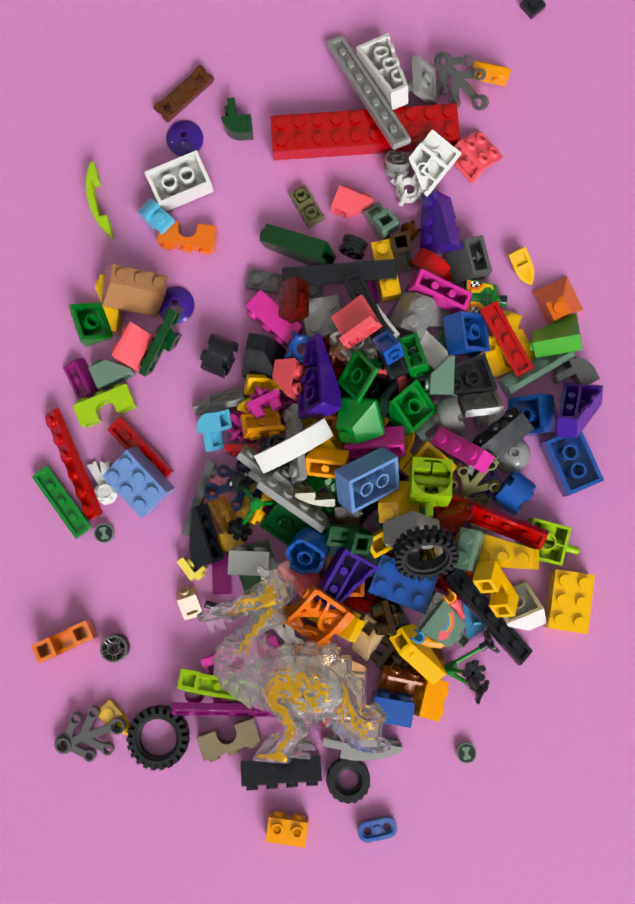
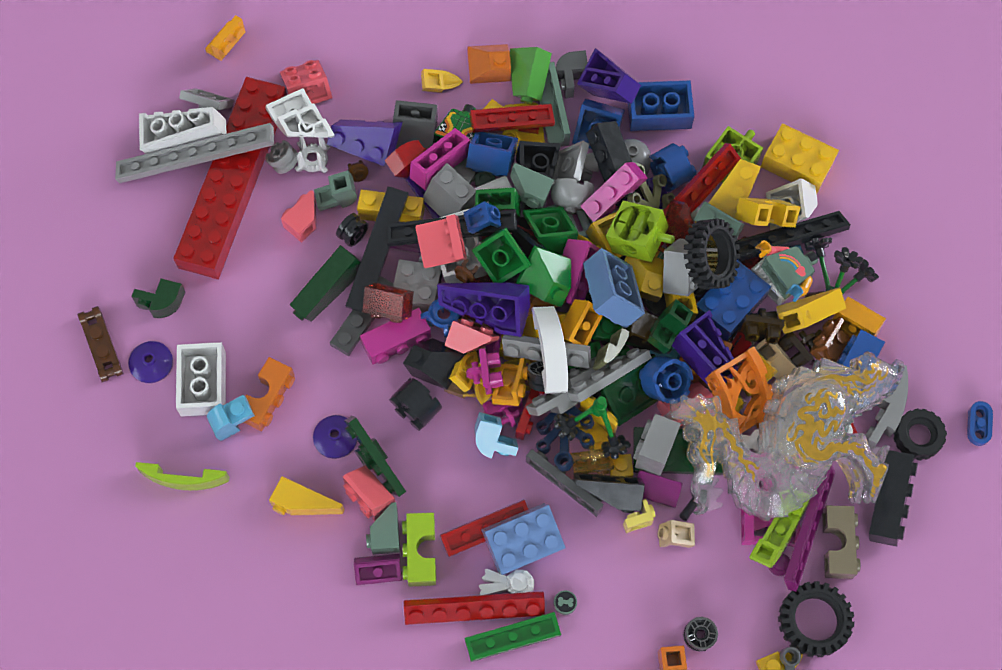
camera: 70 degrees left, 15 degrees down
(90, 323) = (319, 533): green slope -> none
(133, 290) = (304, 467): medium nougat slope -> none
(219, 401) = (464, 424): light grey hinge -> none
(287, 828) = (955, 514): light orange brick -> none
(306, 206) = (285, 263): olive slope -> none
(401, 248) = (371, 179): dark brown brick -> none
(458, 79) = (219, 67): dark grey plant -> none
(466, 752) = (924, 310): tile -> none

